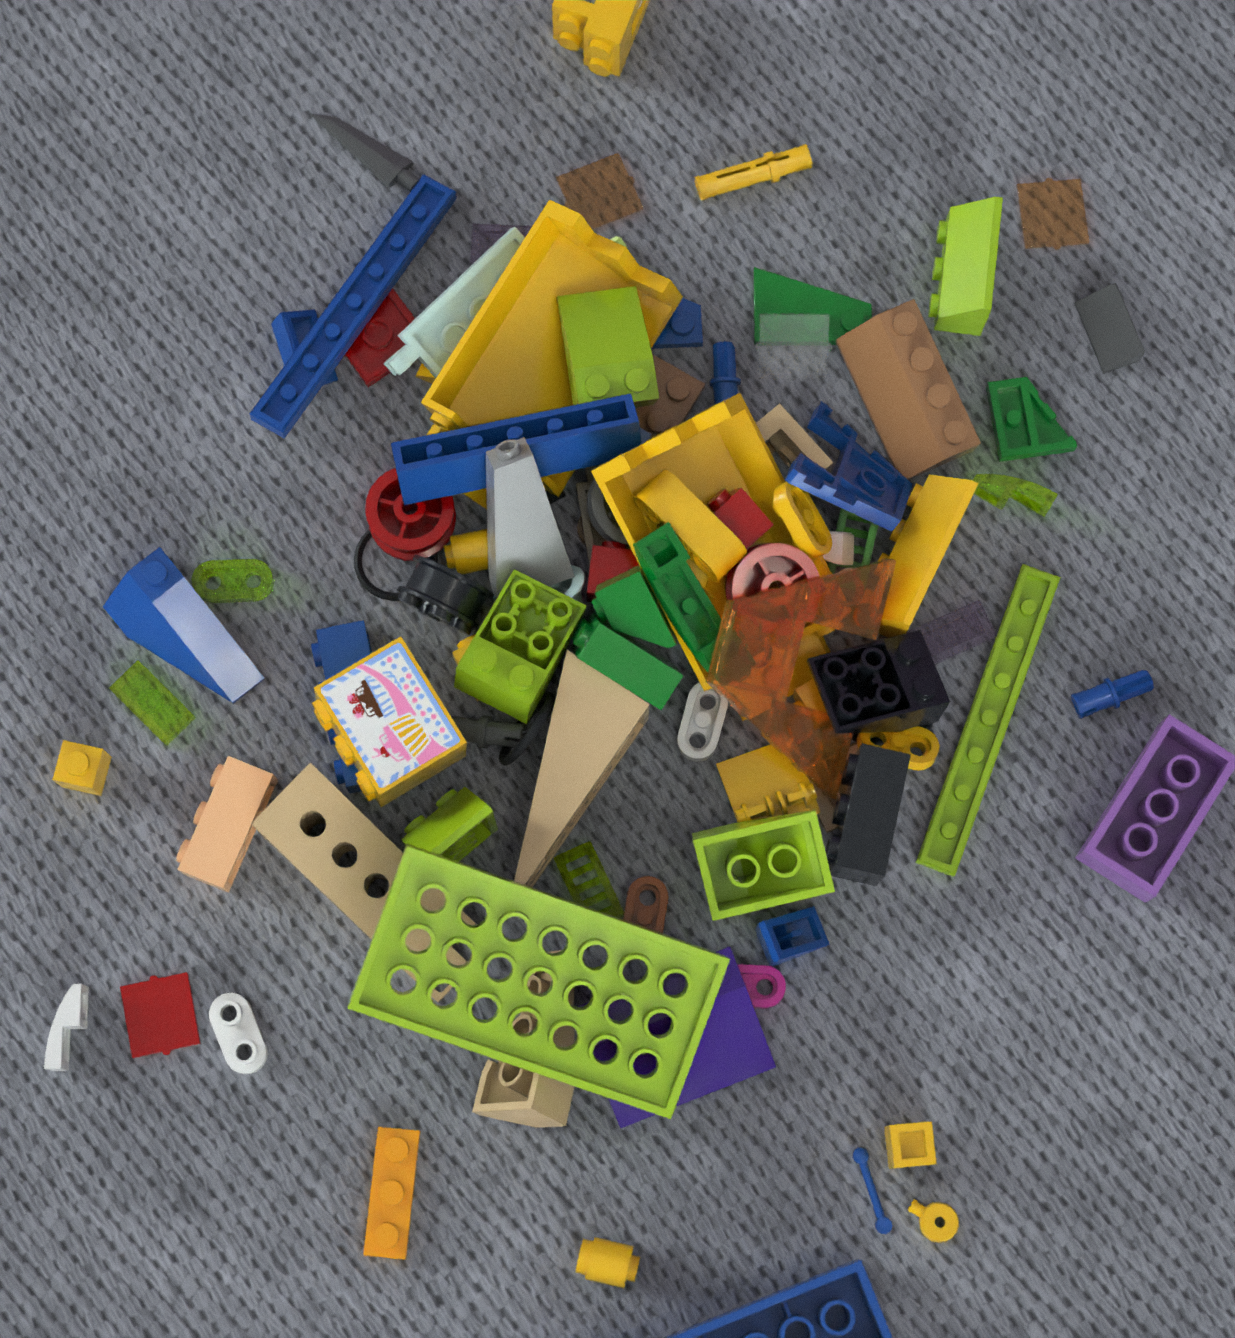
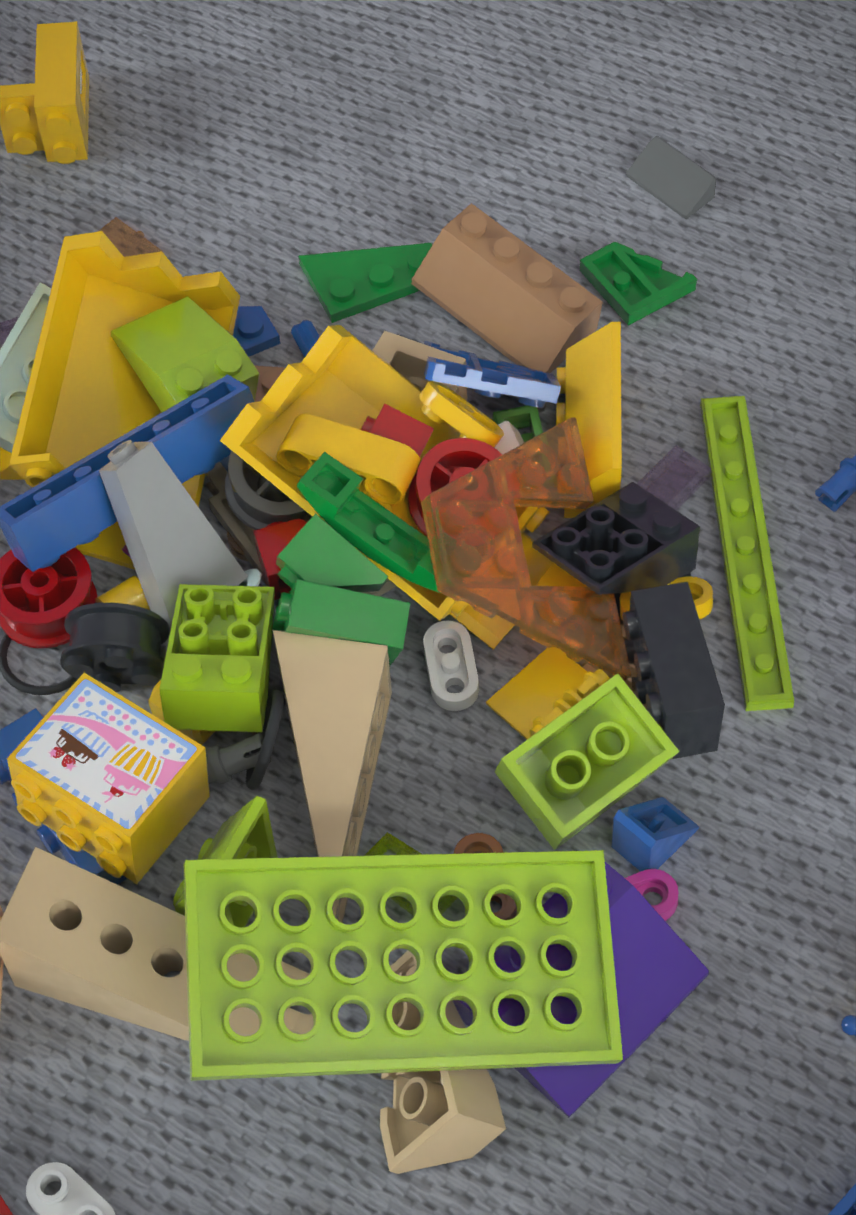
camera: 20 degrees left, 20 degrees down
(766, 168) = (271, 173): yellow pin -> none
(793, 346) = (373, 301): clear piece -> none
(966, 266) = (508, 169): lime slope -> none
(999, 488) = (661, 335): clear neon green slope -> none
(1052, 213) = (564, 114): clear orange piece -> none

